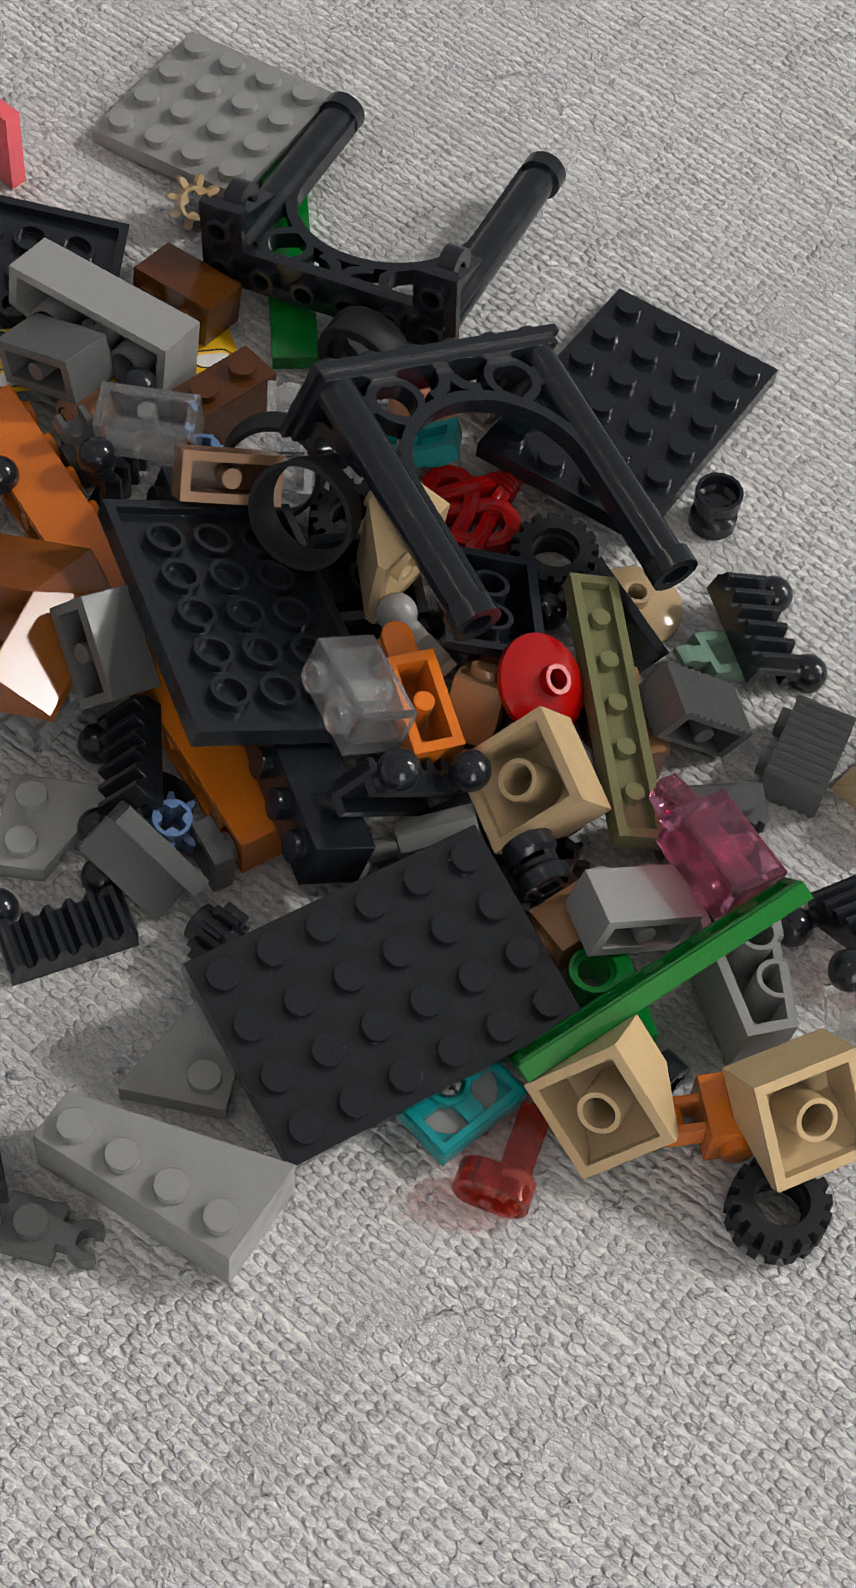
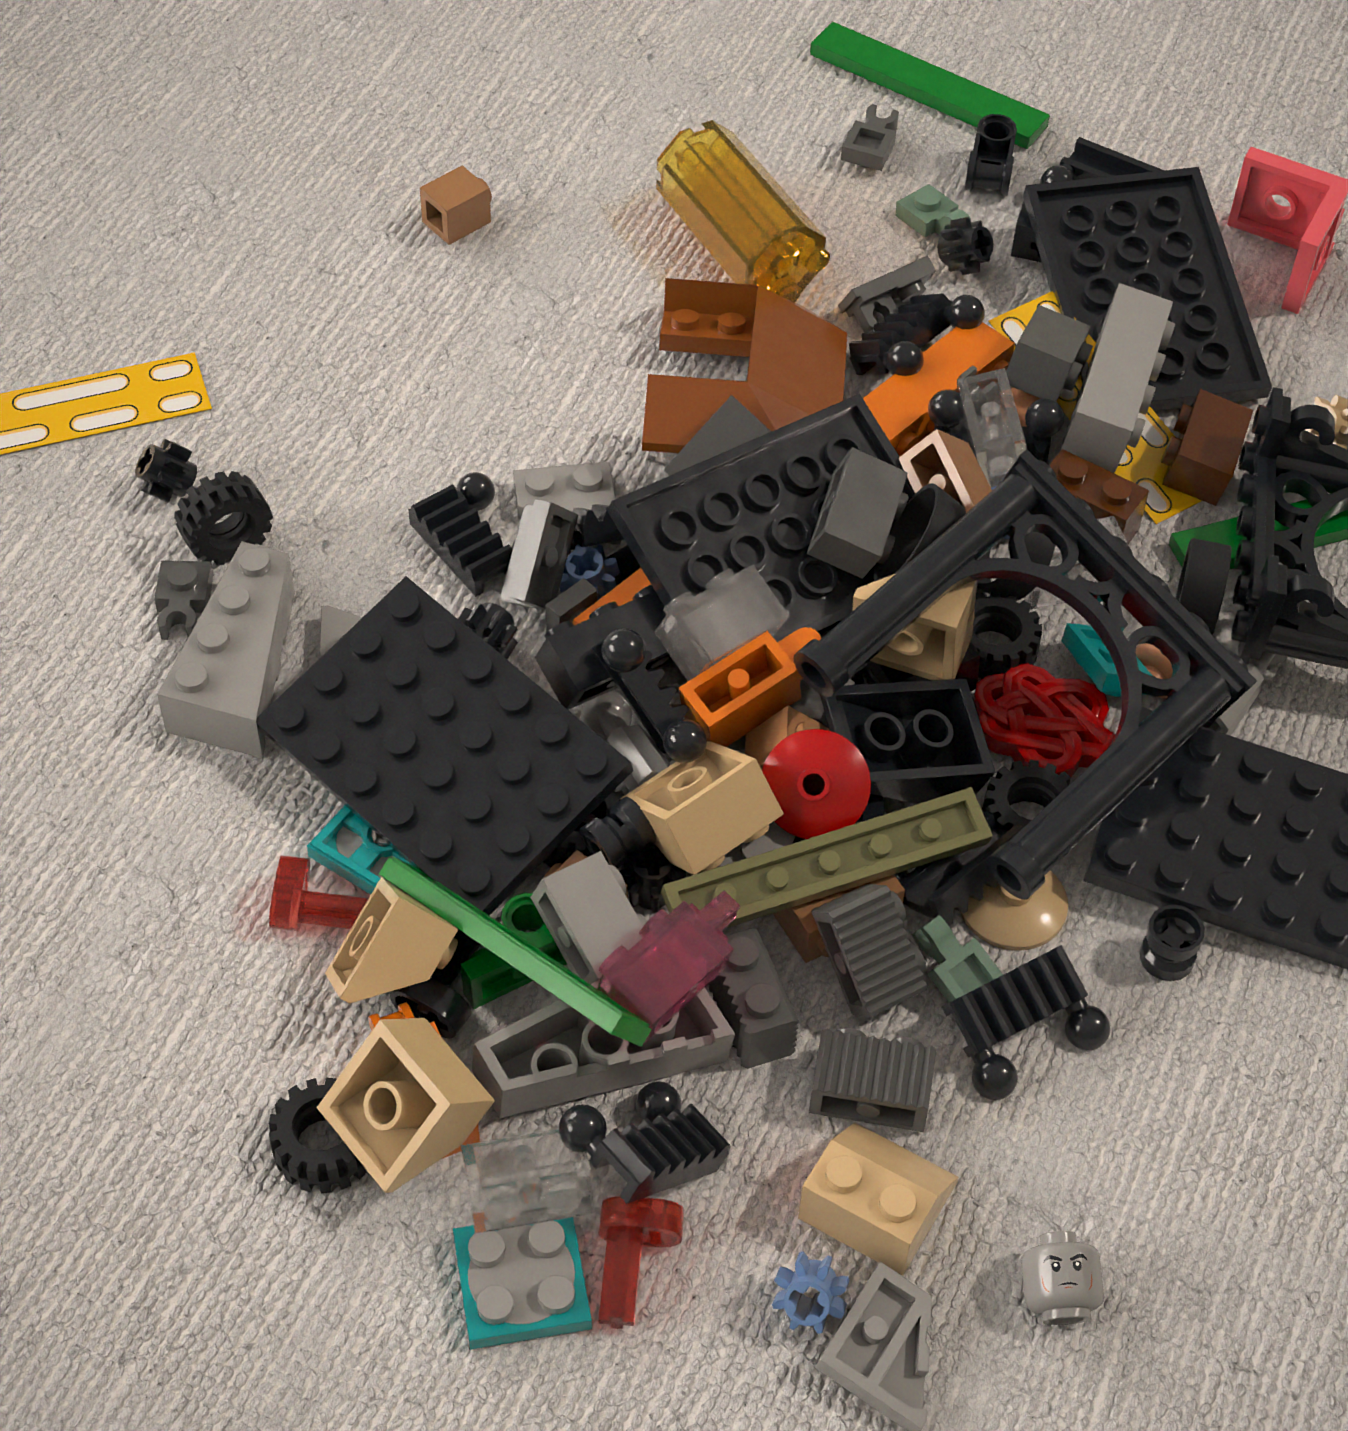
camera: 80 degrees right, 5 degrees down
(251, 548) = (859, 514): none -> dark grey brick

